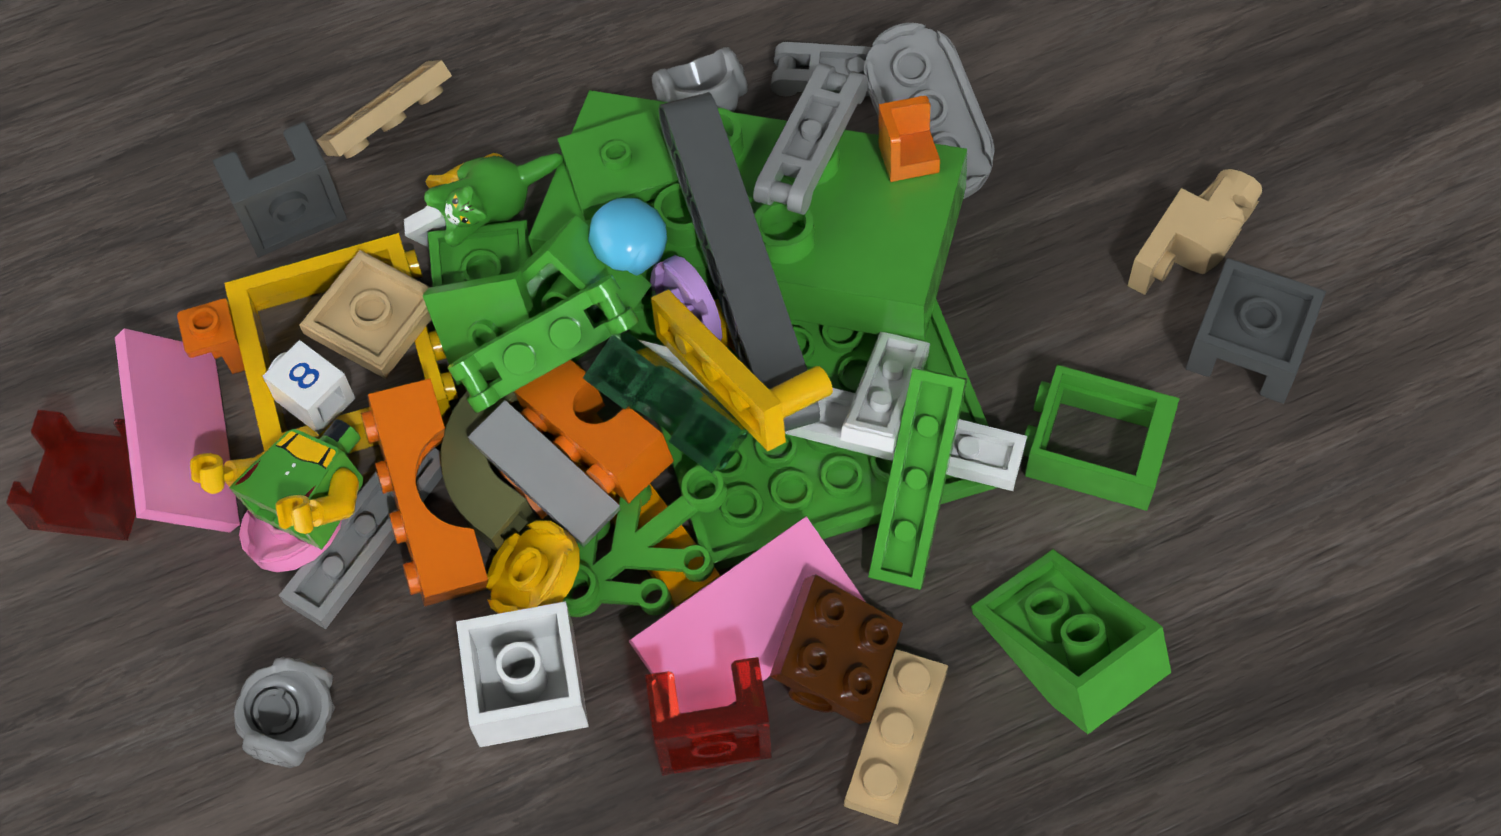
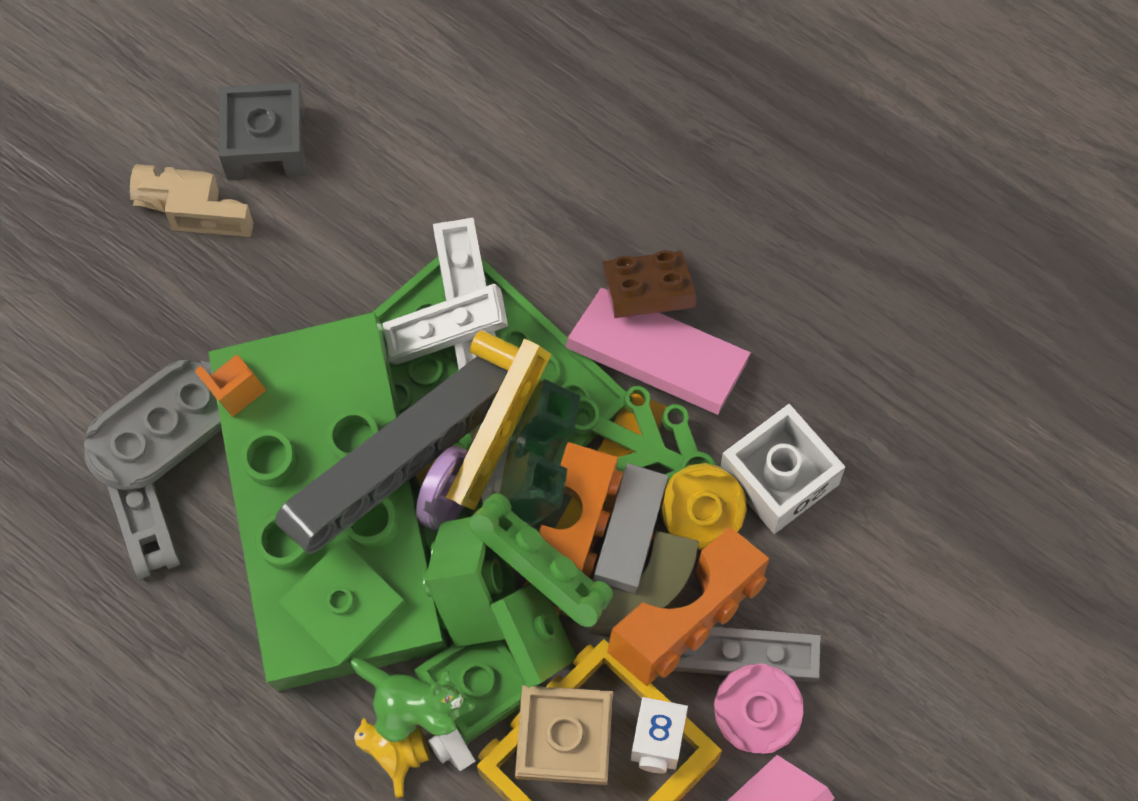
camera: 120 degrees left, 5 degrees up
(284, 711) = (899, 614): light grey hair -> none
(295, 484) = (739, 695): torso -> none
(628, 235) = (419, 539): medium azure hair -> none
(710, 735) = (766, 333): clear red panel -> none
(714, 73) = (214, 604): light grey hair -> none
(810, 138) = (264, 445): light grey plate -> none
(896, 736) = (686, 232): tan plate -> none
(917, 478) = (517, 276): bright green piece -> none
(1075, 639) = (557, 156): bright green slope -> none
(1111, 400) = (389, 161): bright green window -> none

